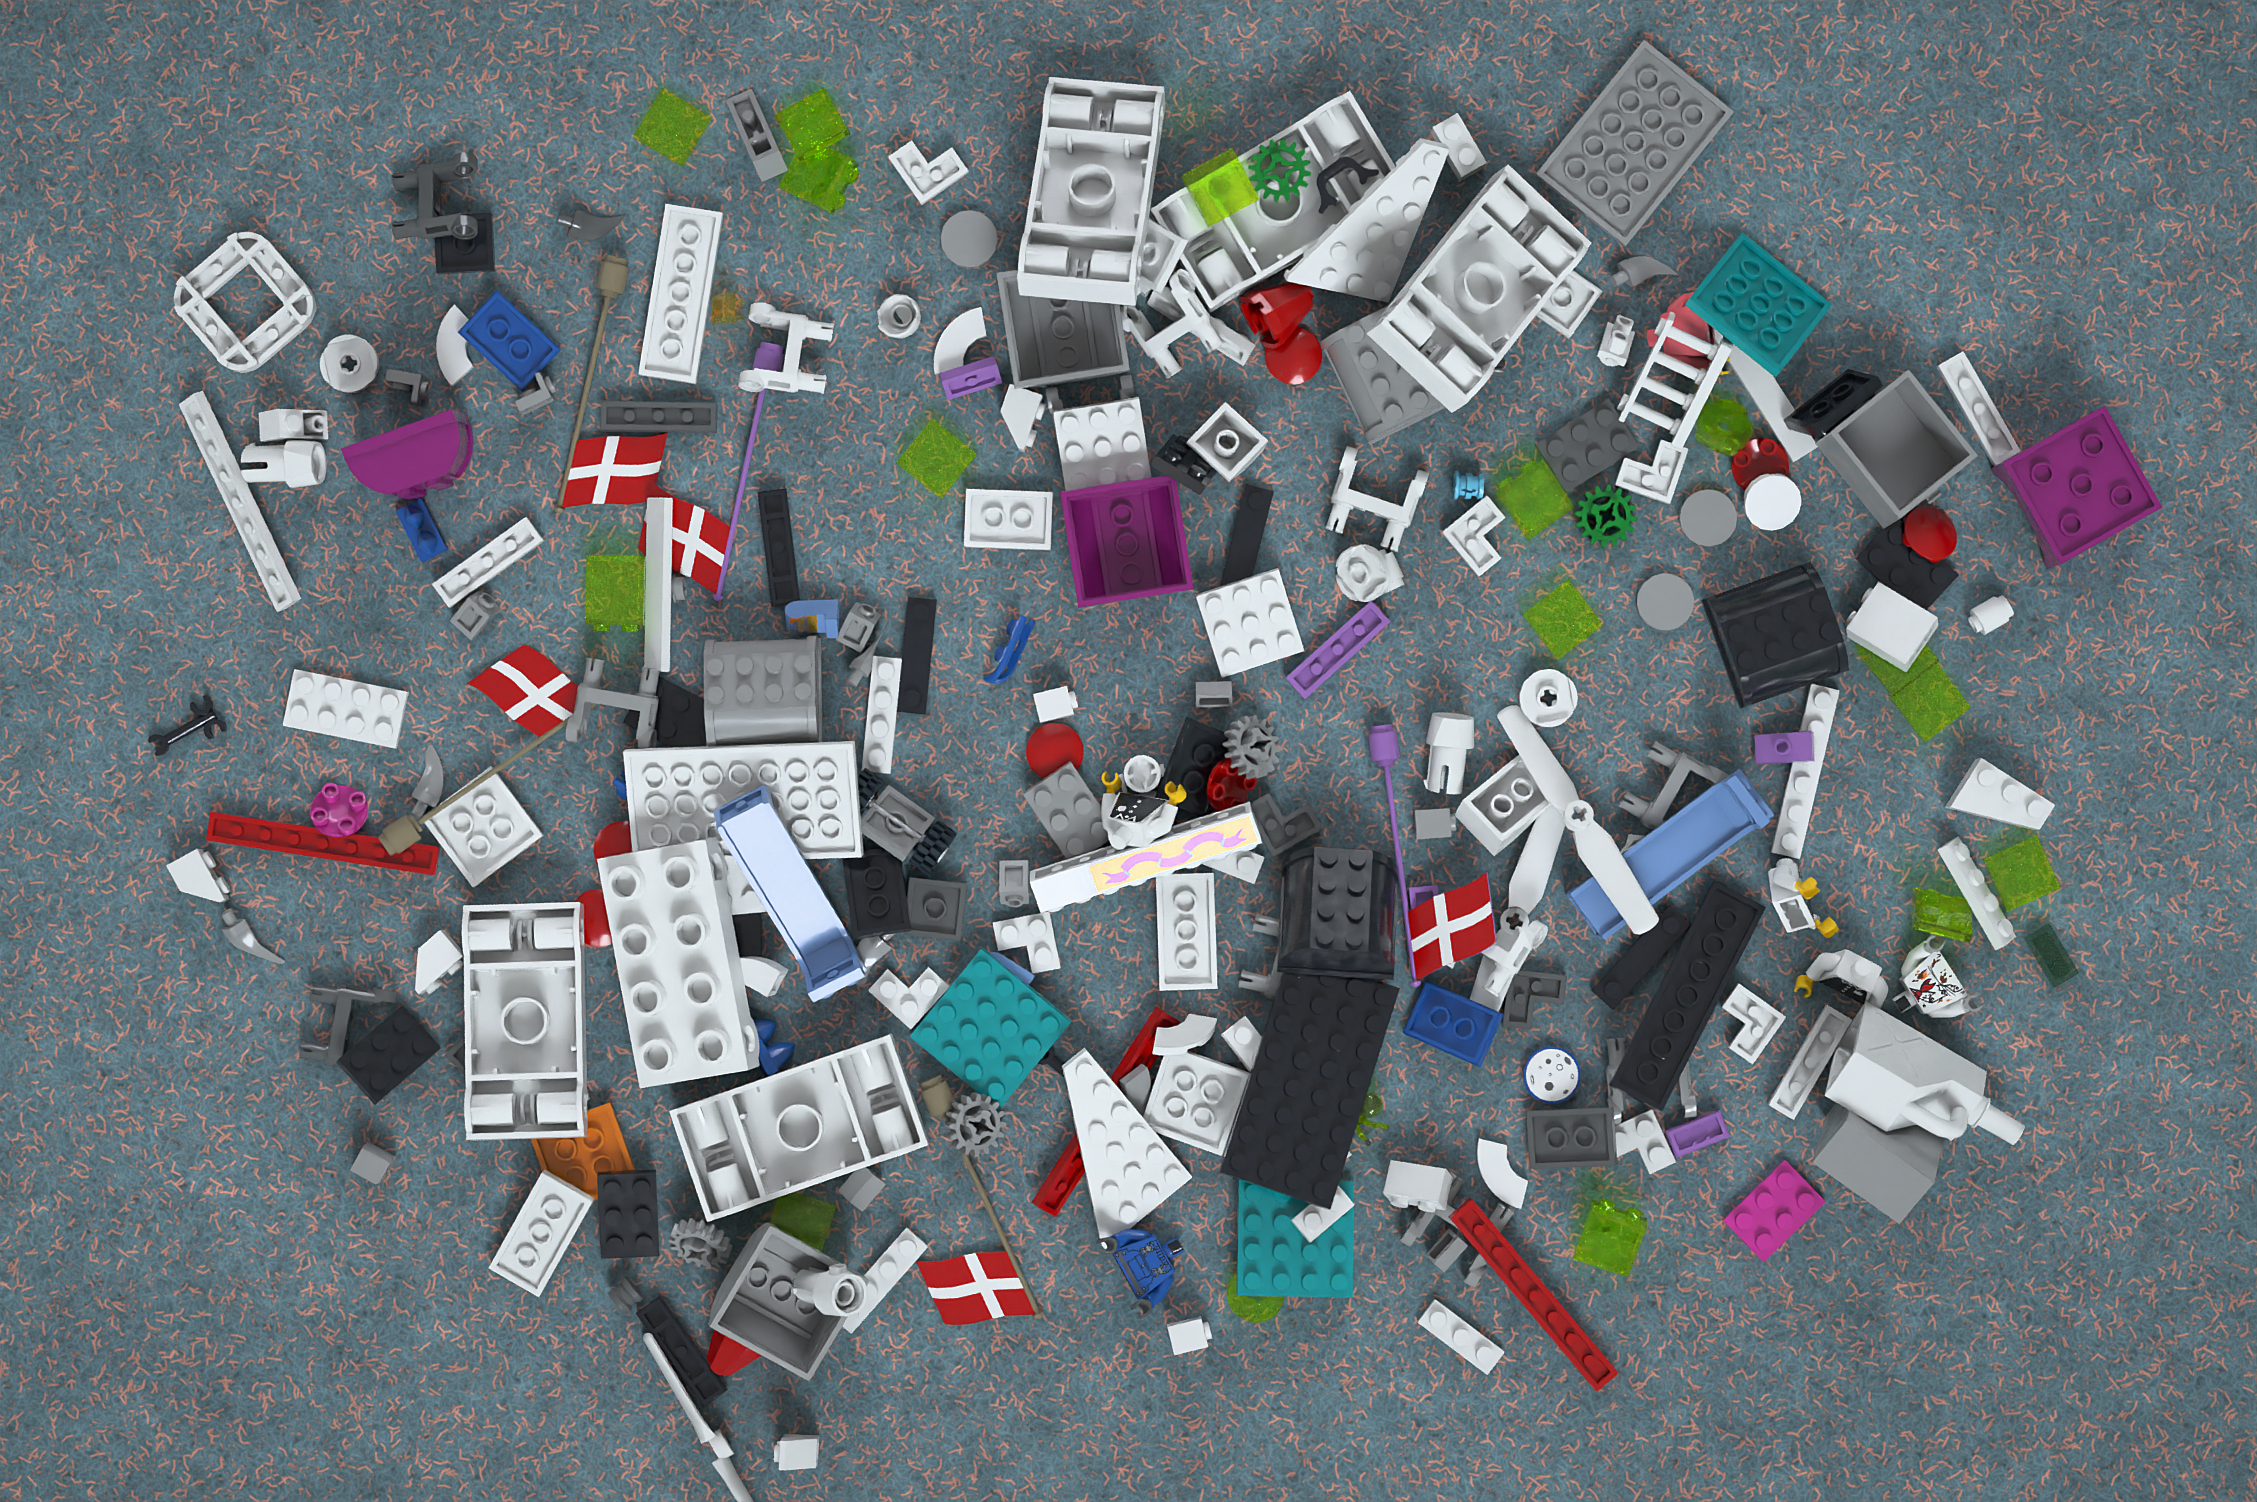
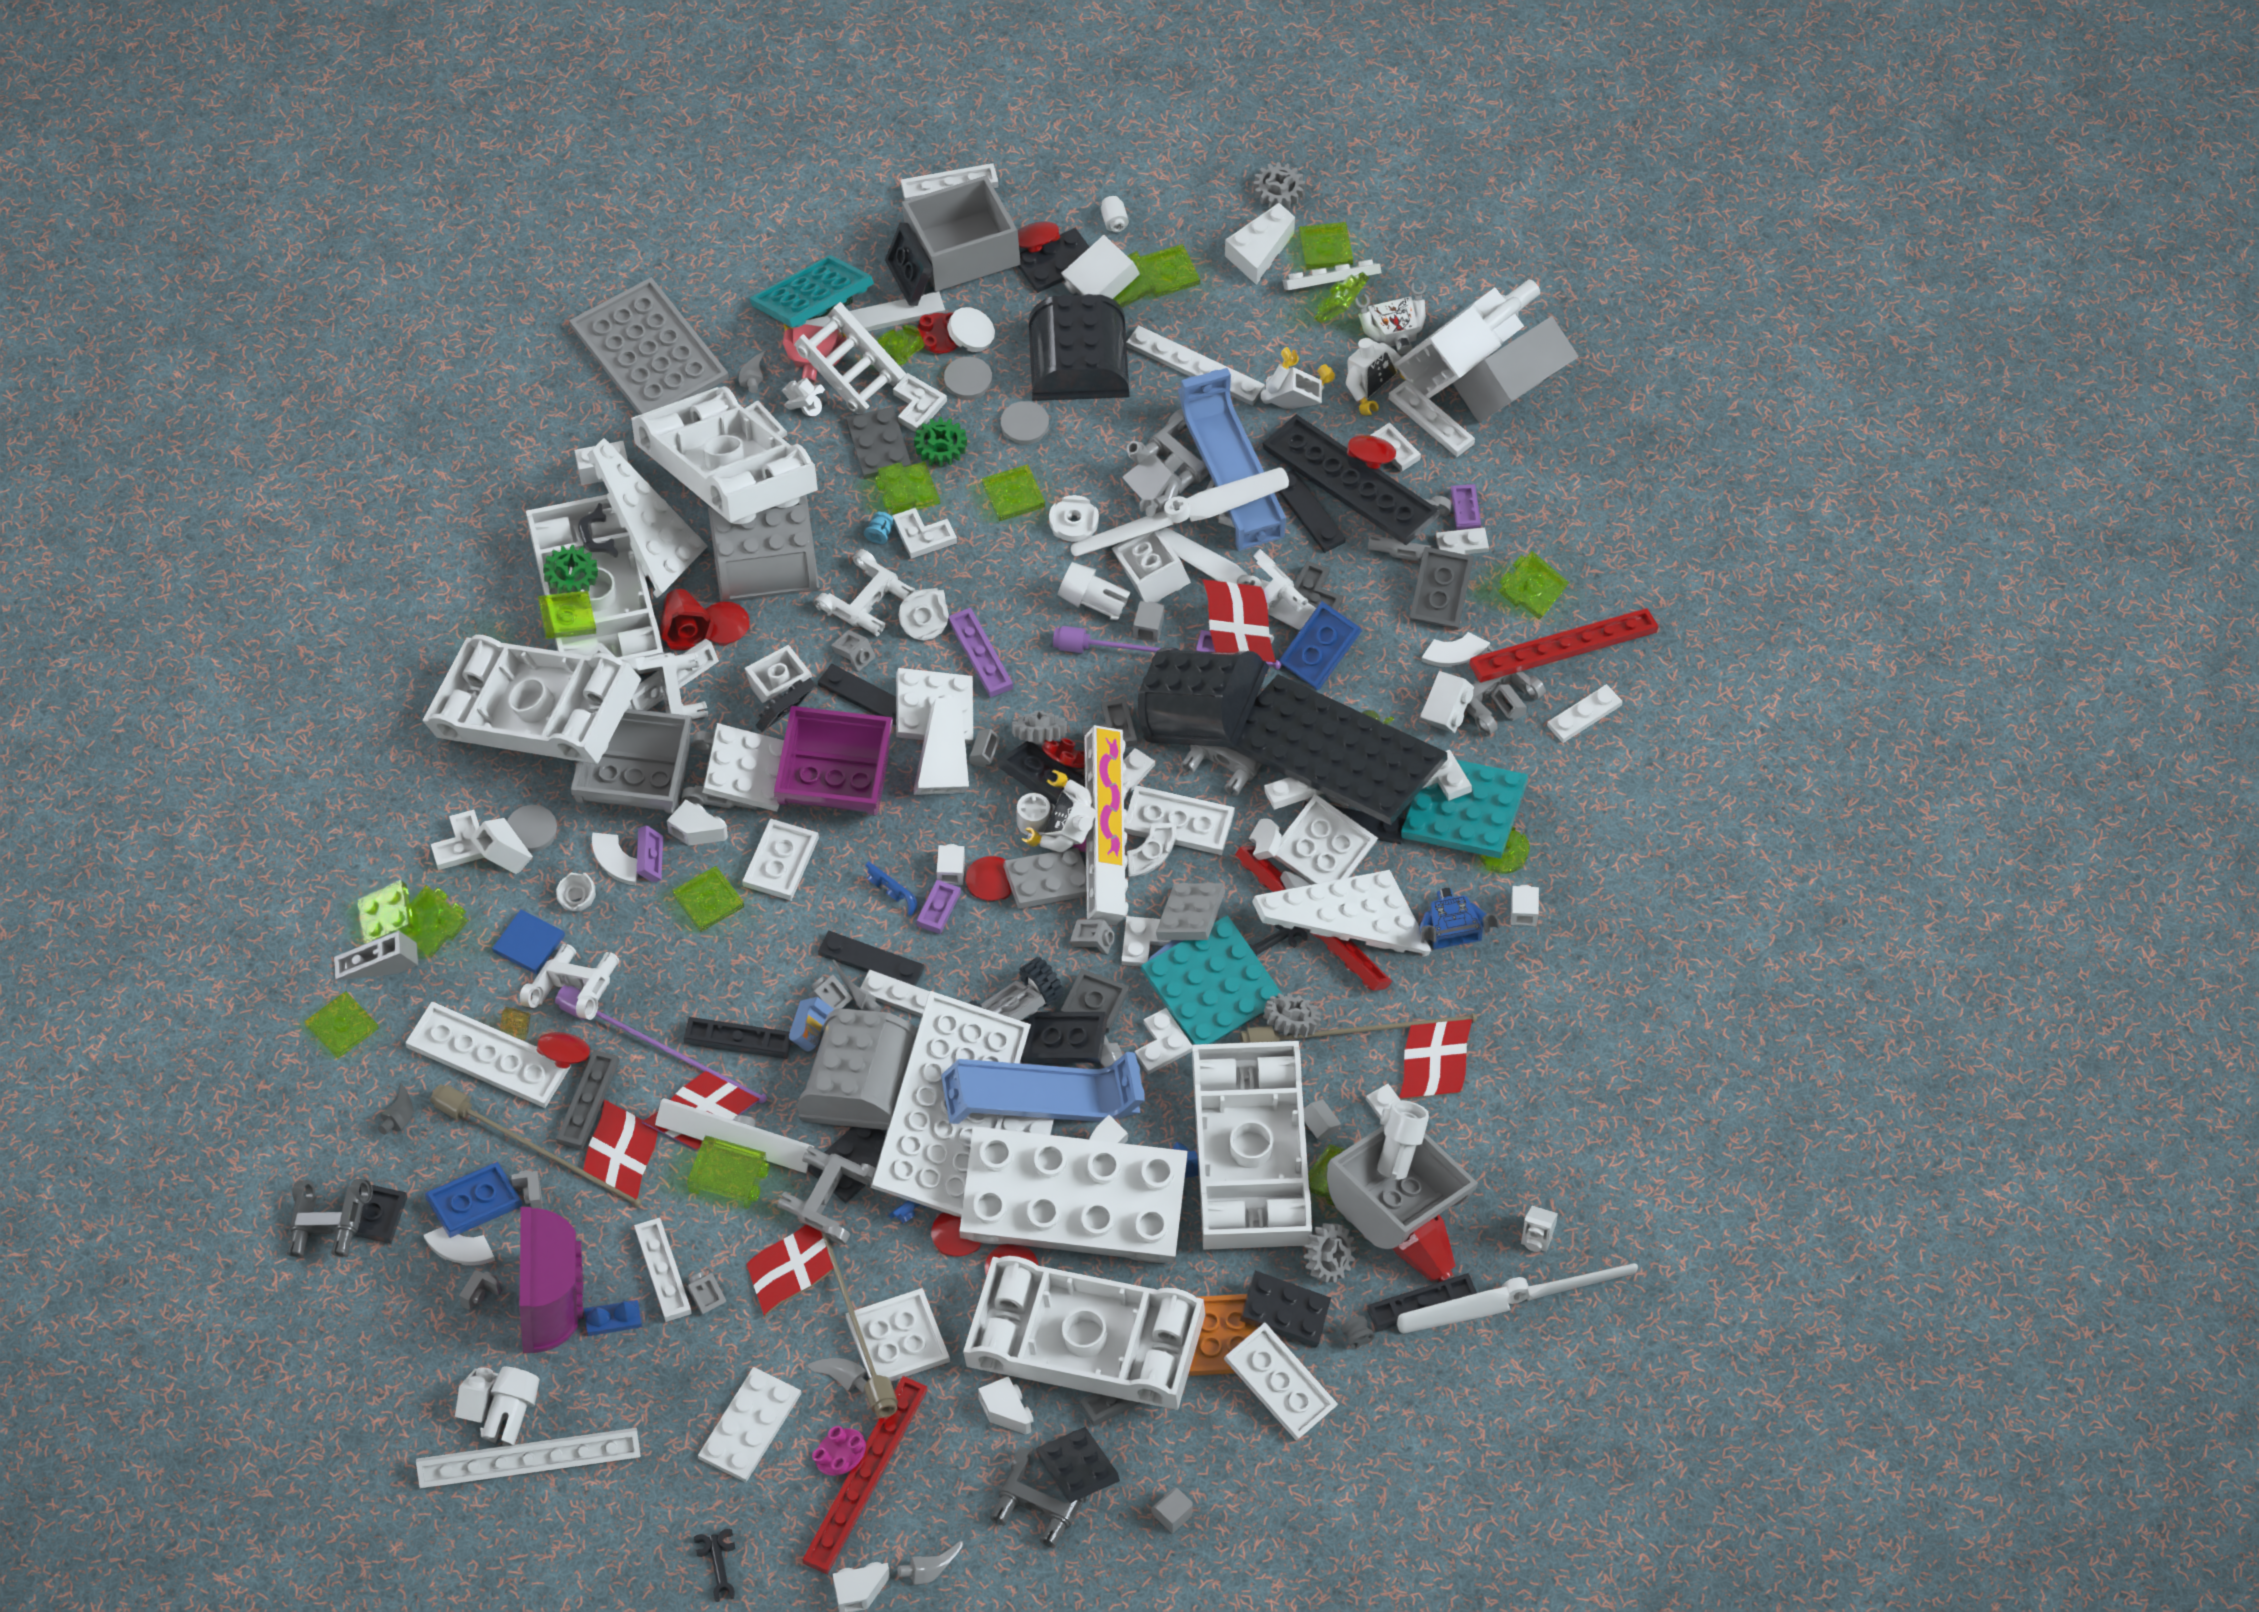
camera: 80 degrees left, 30 degrees down
(215, 272) = (337, 1371): white plate -> none
(335, 355) = (431, 1324): white plate -> none
(706, 371) = (563, 1048): none -> red dish
(830, 286) = (528, 941): none -> blue tile
(928, 217) = (501, 845): none -> white slope
(1000, 707) = (938, 906): none -> medium lavender plate
(1066, 981) = (1190, 911): none -> light grey plate
(1137, 917) = (1153, 850): none -> white tile
(1184, 653) = (943, 753): none -> white slope
(1299, 509) = (854, 648): none -> light grey bracket
(1551, 1074) = (1385, 595): white tile -> none
(1616, 775) = (1152, 477): none -> light grey torso
(1731, 1010) = (1371, 450): none -> red dish
(1774, 1210) = (1545, 473): dark pink plate -> none
(1784, 747) = (1171, 369): medium lavender plate -> none
(2050, 955) = (1397, 244): clear green plate -> none
(2078, 486) = (1034, 123): magenta container -> none
(2083, 784) = (1277, 185): none -> light grey gear

